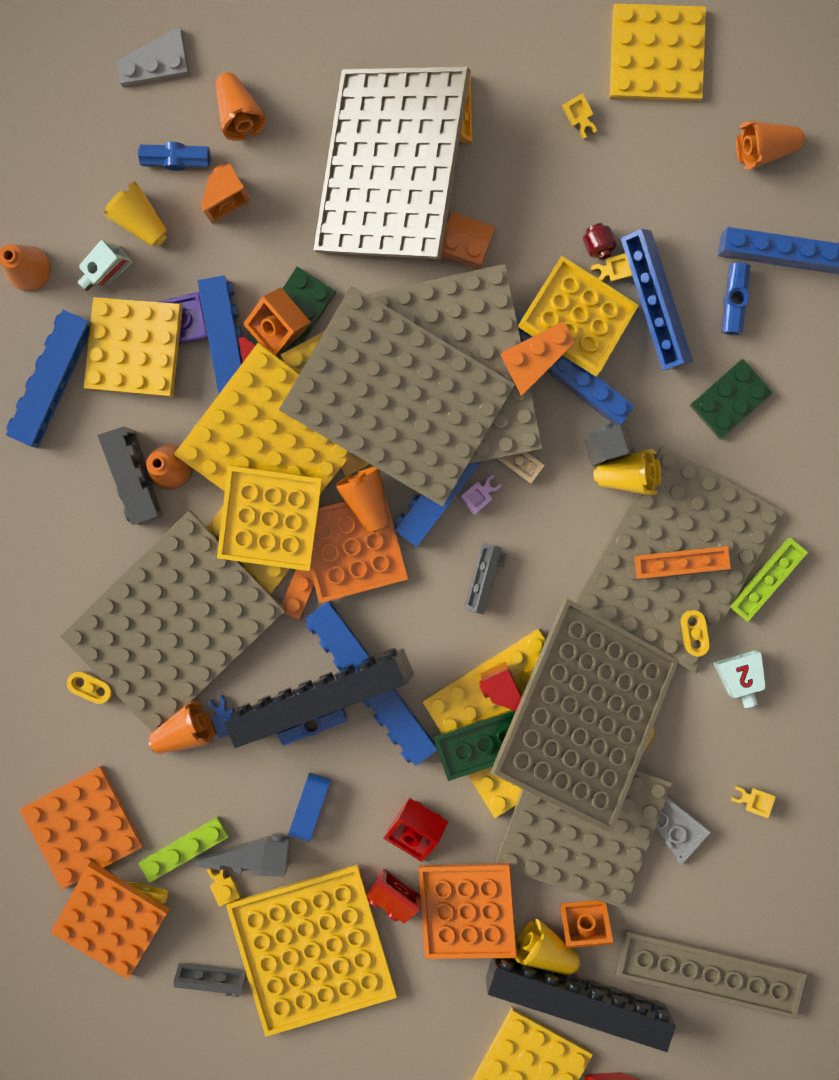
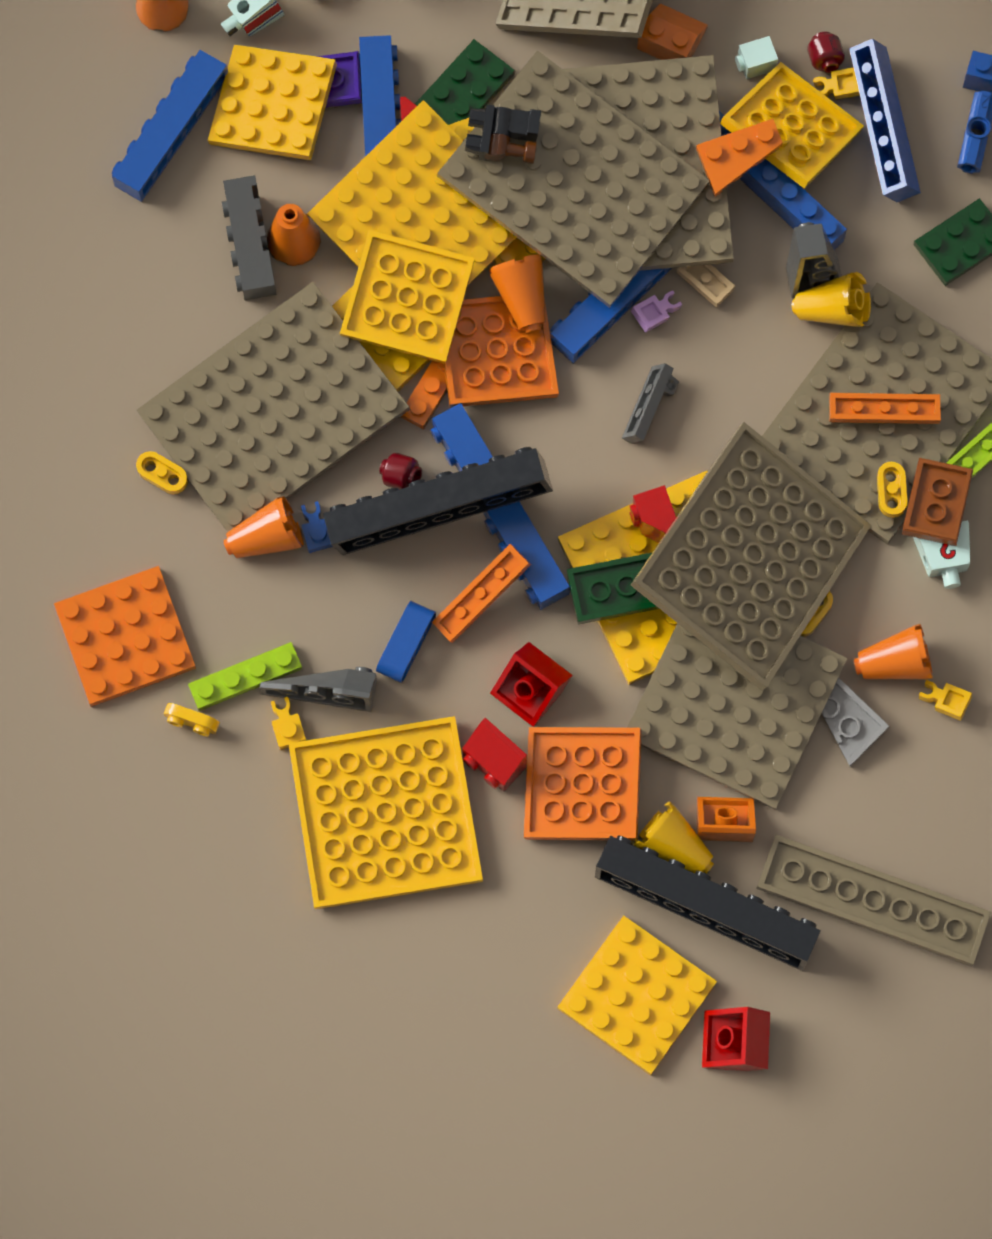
camera: 10 degrees right, 15 degrees down
(109, 920) = (145, 742): orange plate -> none
(210, 979) = (281, 838): dark grey hinge -> none
(276, 321) = (445, 88): orange slope -> none
(286, 663) = (400, 470): none -> dark red head
(301, 731) = (440, 540): blue piece -> none
(325, 369) = (498, 127): none -> black hips
(365, 763) = (481, 593): none -> orange plate
(540, 253) = (756, 57): none -> light aqua brick
(711, 775) = (896, 657): none -> orange cone
(734, 639) = (937, 501): none -> dark orange tile

